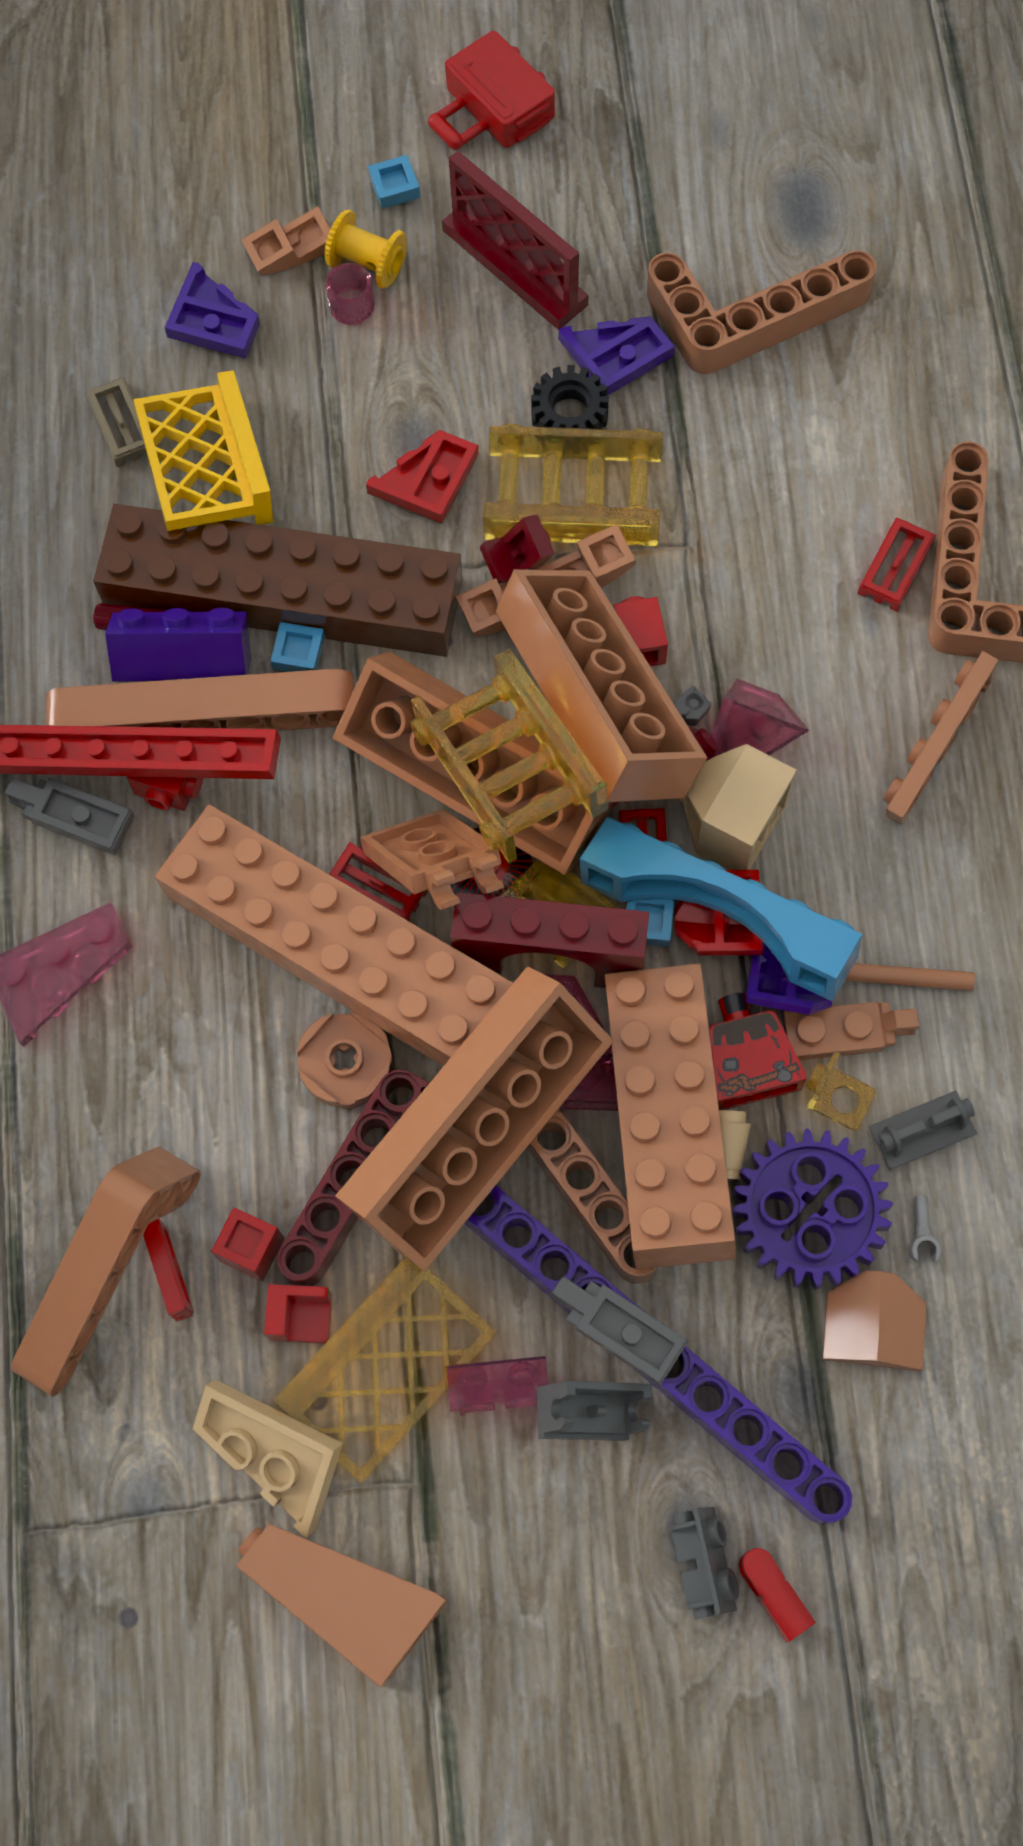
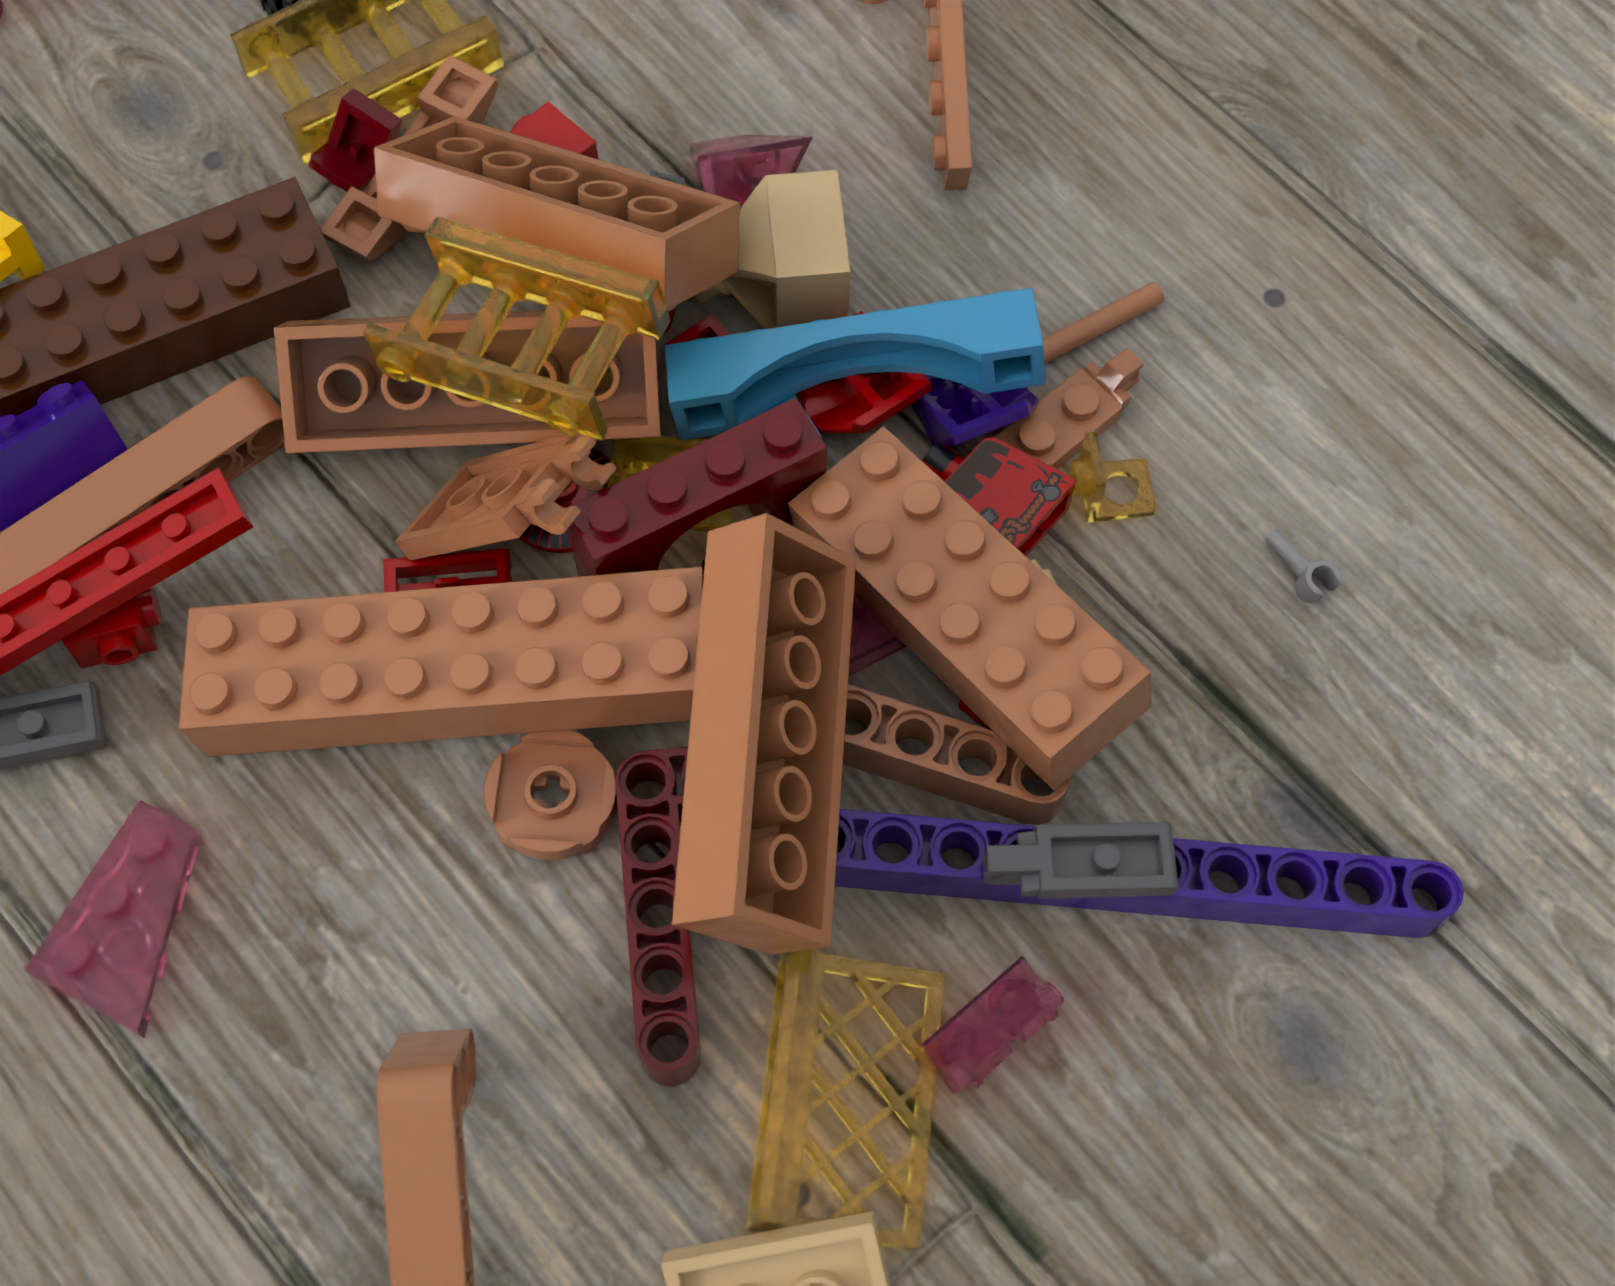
camera: 40 degrees left, 5 degrees down
(167, 1271) = (518, 1169): red tile -> none
(248, 1244) = (590, 1070): red panel -> none
(297, 648) = (168, 389): dark azure plate -> none
(298, 1313) = (706, 1108): red panel -> none
(427, 477) = (192, 132): red wing -> none
(591, 1410) = (1116, 976): dark grey hinge -> none
(712, 1581) = (1374, 1074): dark grey hinge -> none
(775, 1593) = (1447, 1037): red bar -> none
(844, 1237) = (1235, 623): dark purple gear -> none
(875, 1322) = (1325, 690): nougat slope -> none
(924, 1129) = (1224, 462): dark grey hinge -> none

